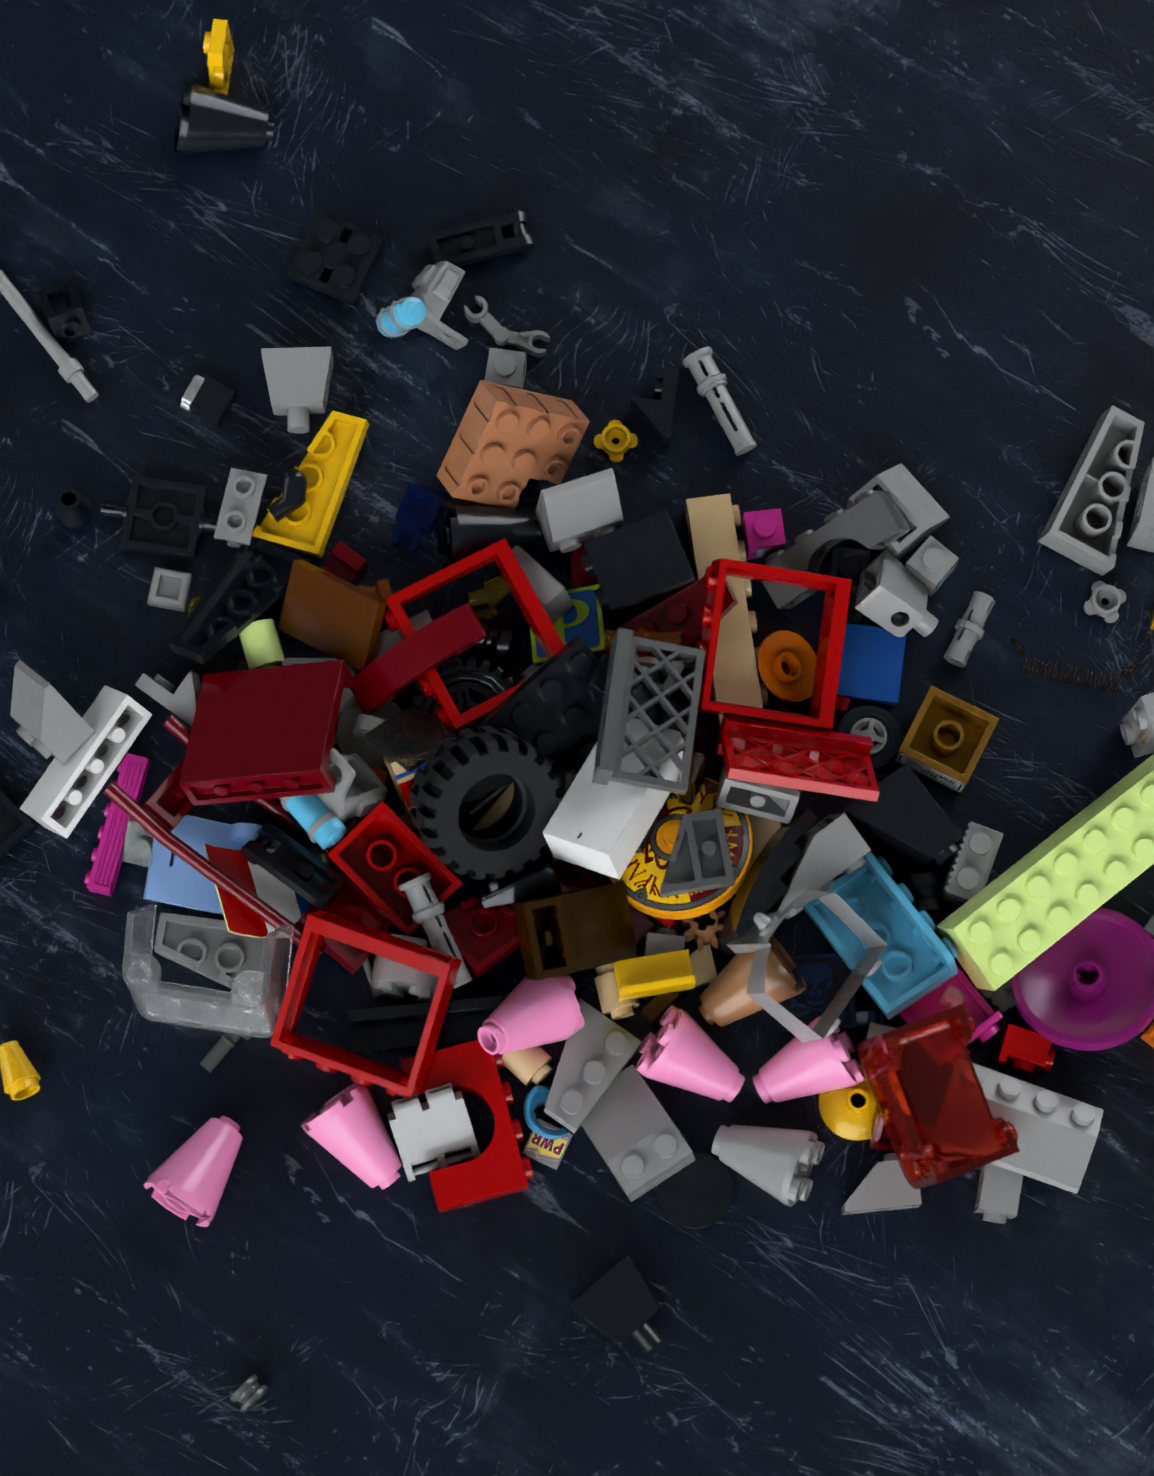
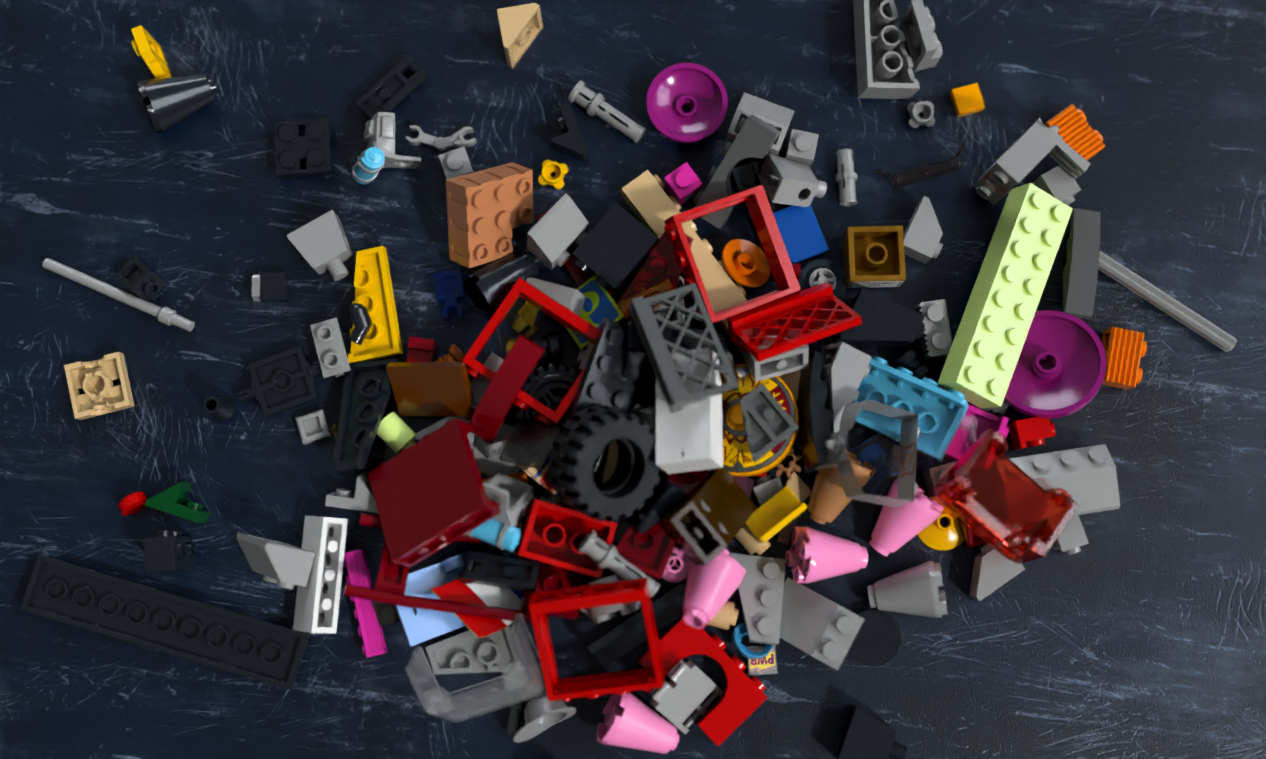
camera: 30 degrees left, 5 degrees up
(251, 1065) = (541, 715): none -> light grey piece
(502, 986) = (680, 574): none -> bright pink head
(665, 249) = (518, 29): none -> tan slope
(828, 417) = (686, 86): none -> magenta dish
(1022, 745) = (923, 233): none -> light grey slope

